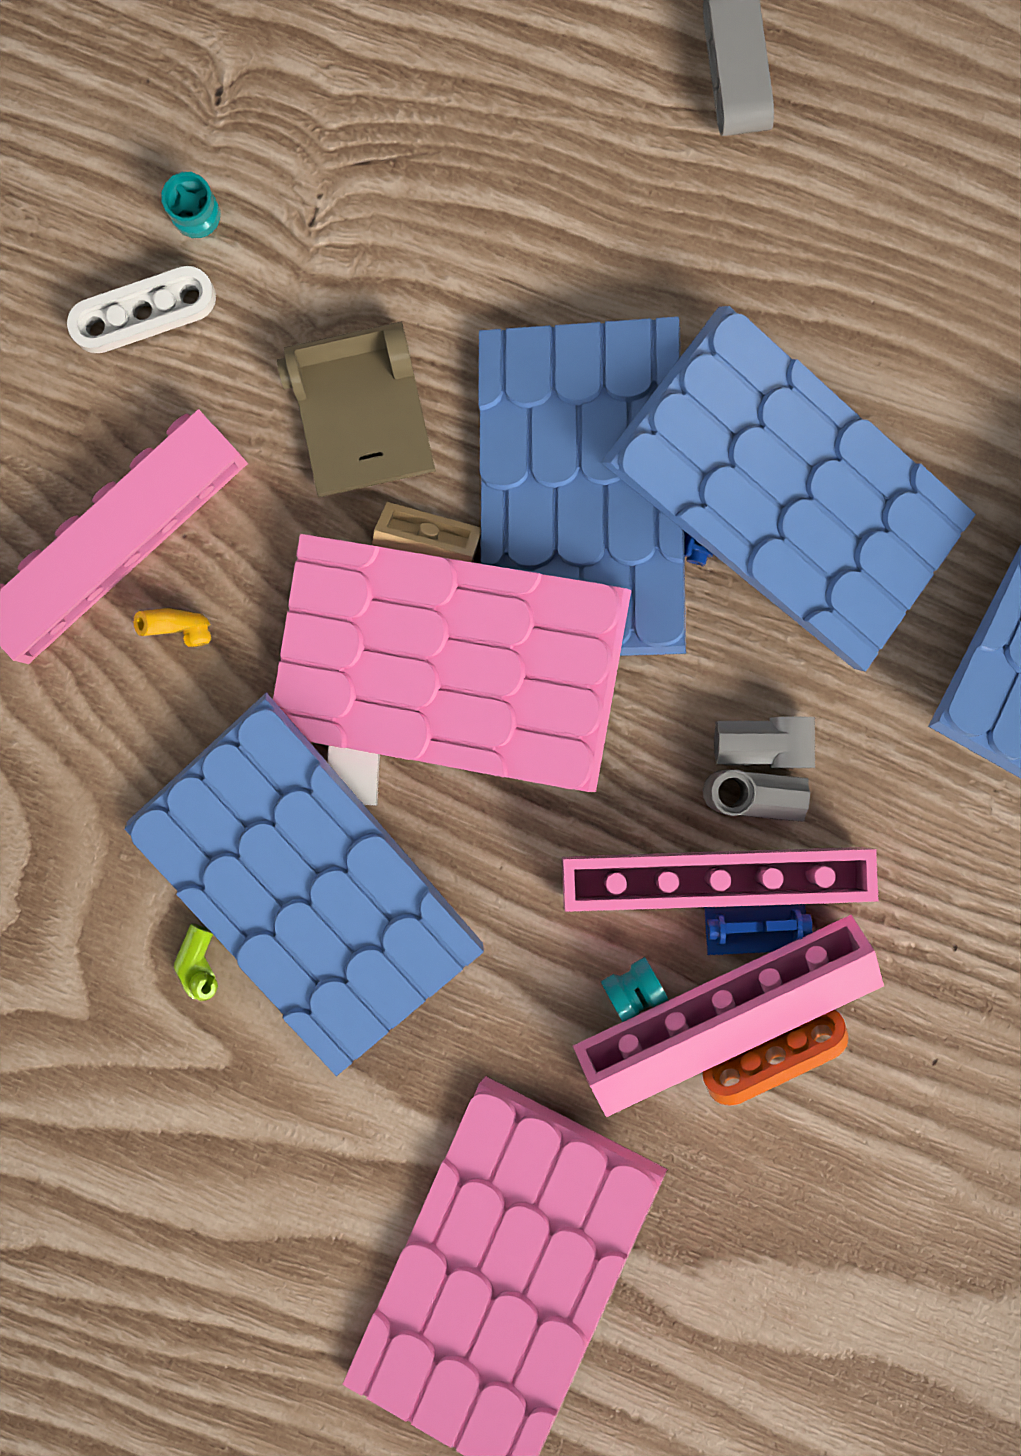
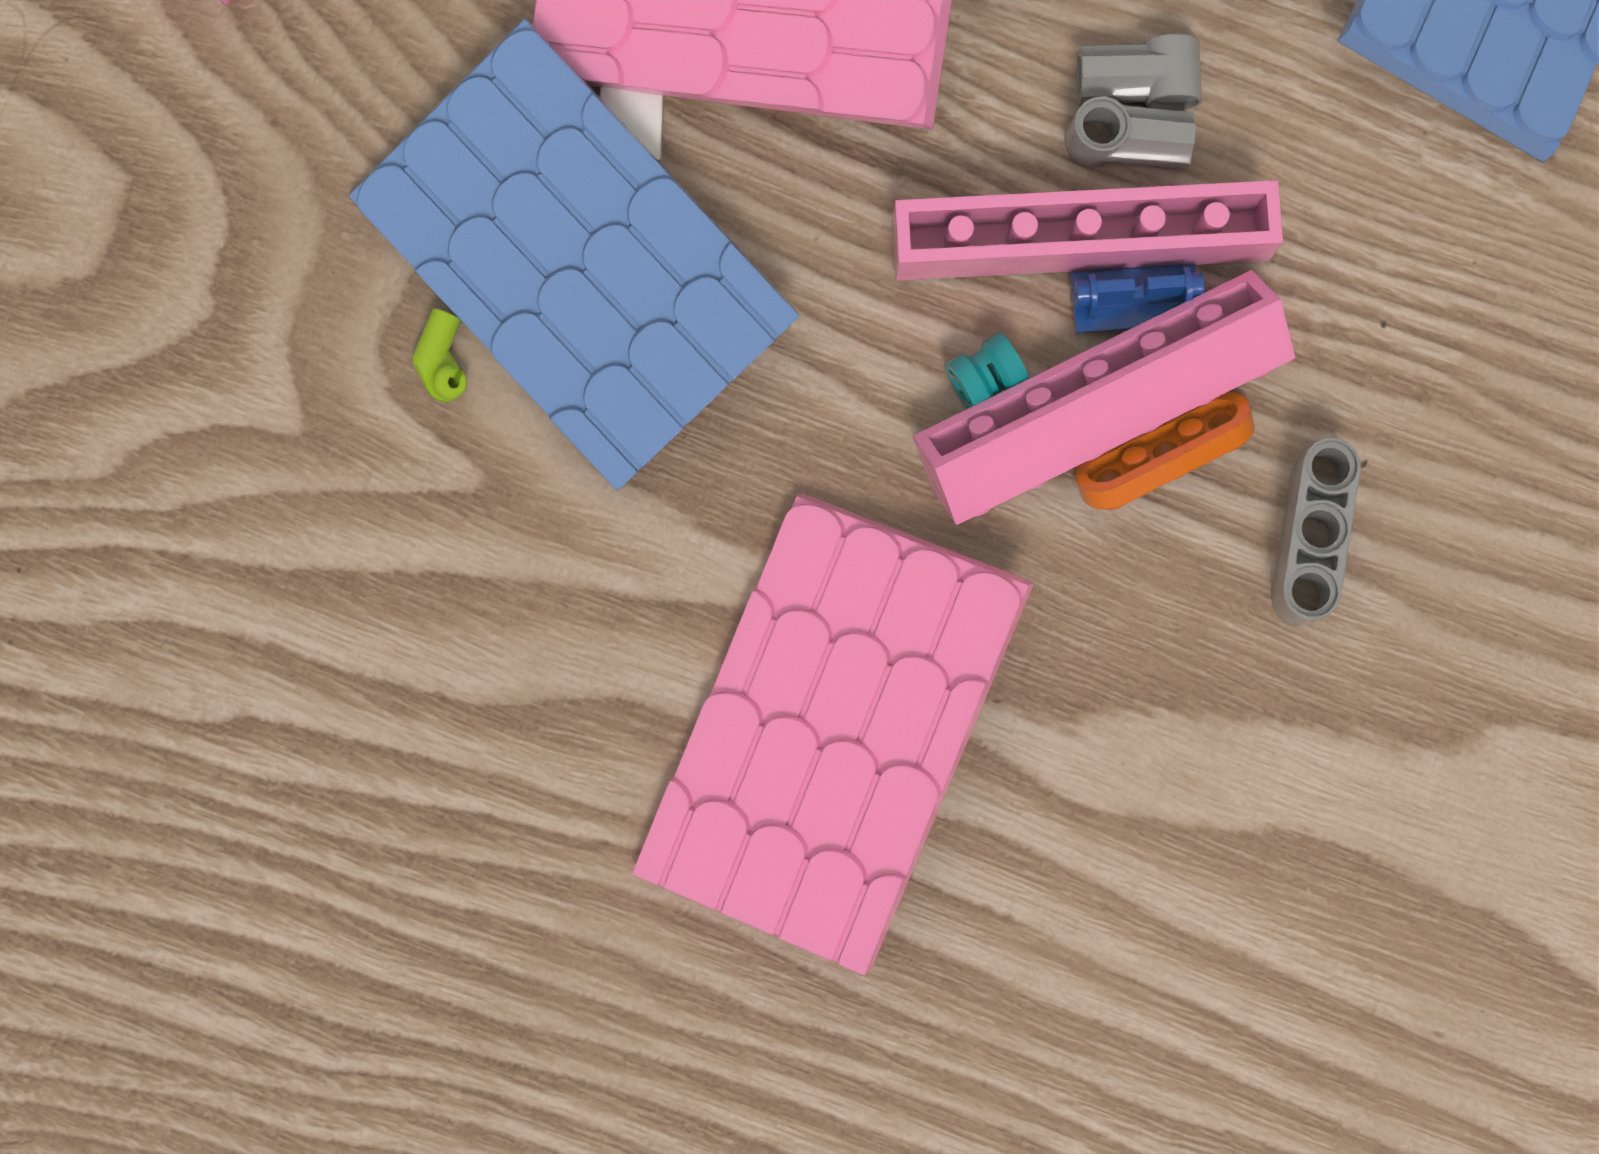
camera: 10 degrees left, 5 degrees down
(904, 1148) = (1332, 506): none -> light grey beam

